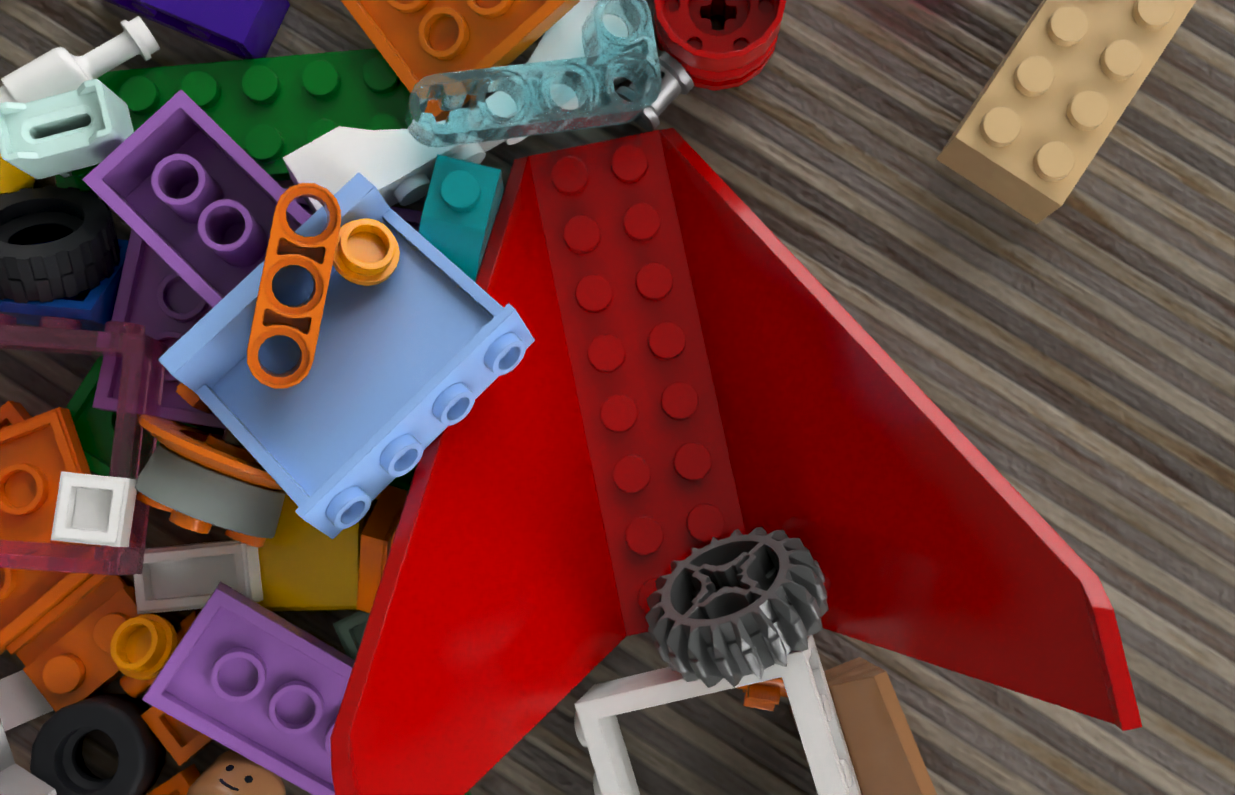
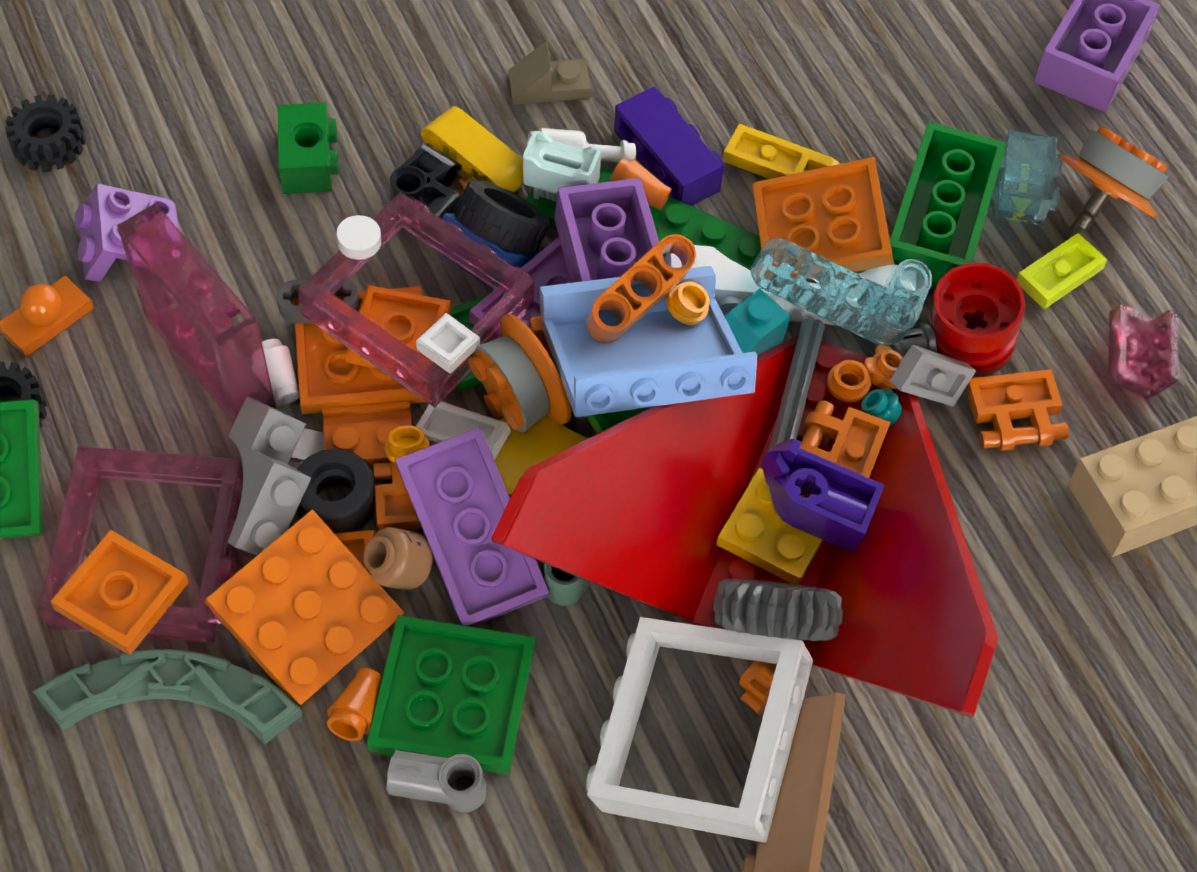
camera: 30 degrees right, 25 degrees down
(171, 71) = (655, 190): none -> orange cone
(564, 258) = (798, 381): none -> dark grey axle
(624, 183) = (853, 372): none -> orange plate
(648, 164) = (883, 366): none -> orange plate
(654, 457) = (764, 538): none -> yellow plate
(678, 213) = (883, 405): none -> teal plate
(683, 300) = (856, 437): none -> orange plate
(713, 130) = (932, 375): none -> light grey plate
(721, 402) = (836, 499): none -> dark purple piece
(815, 85) = (1017, 397): none -> orange plate

